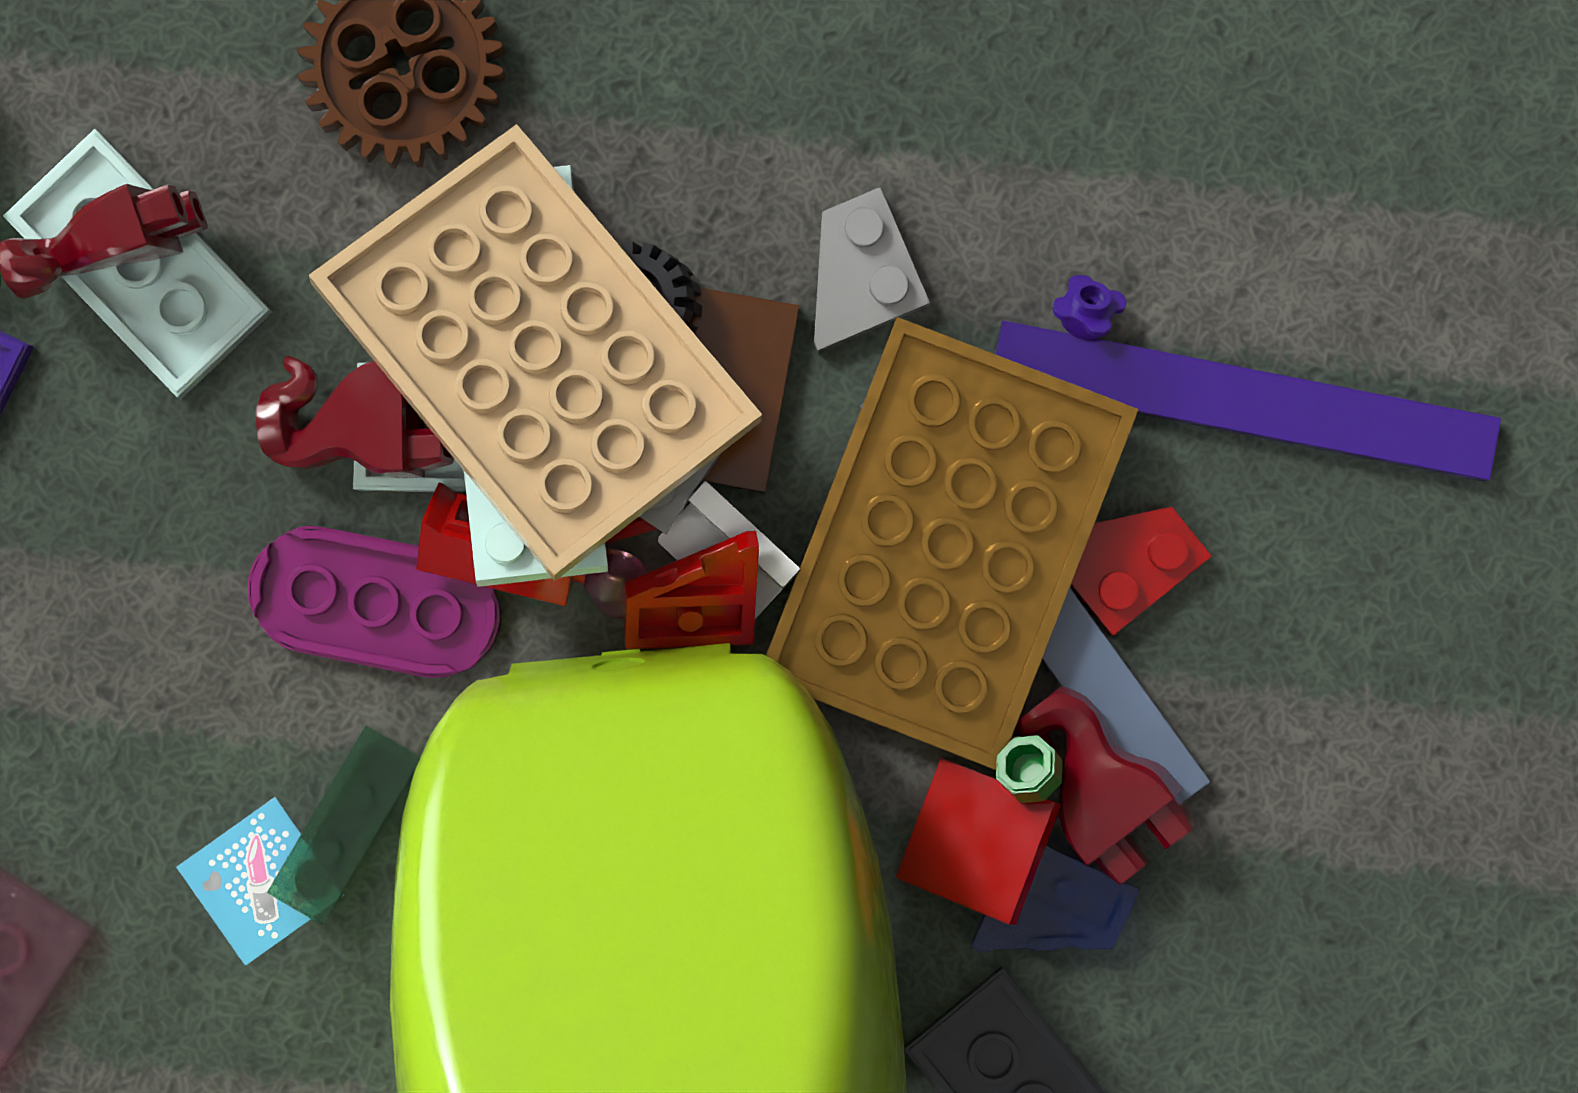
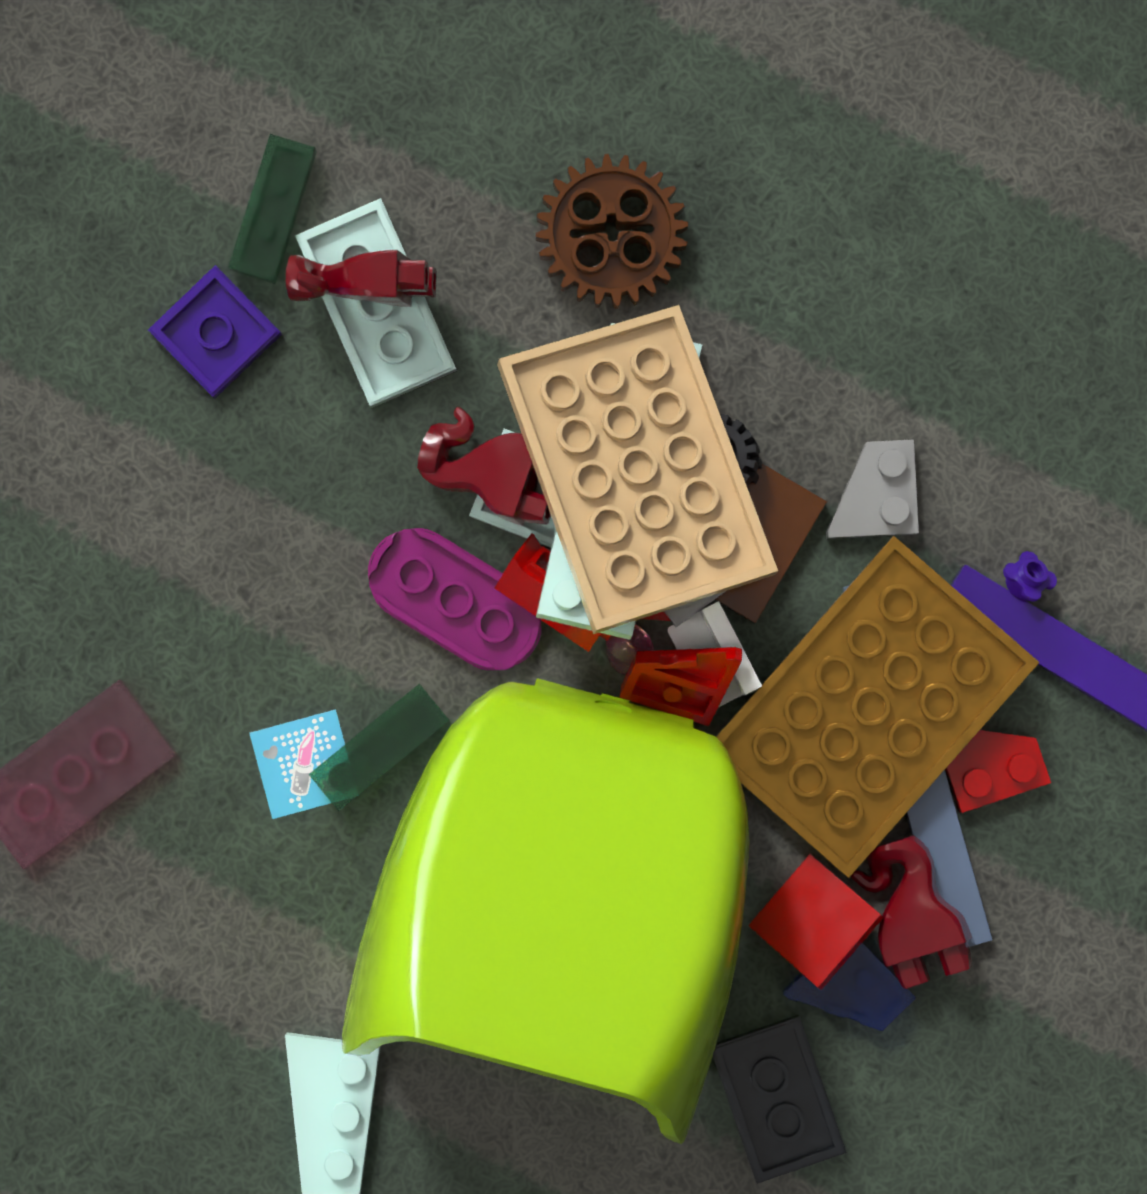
camera: 20 degrees right, 0 degrees up
(1029, 769) = (871, 884): green tile -> none

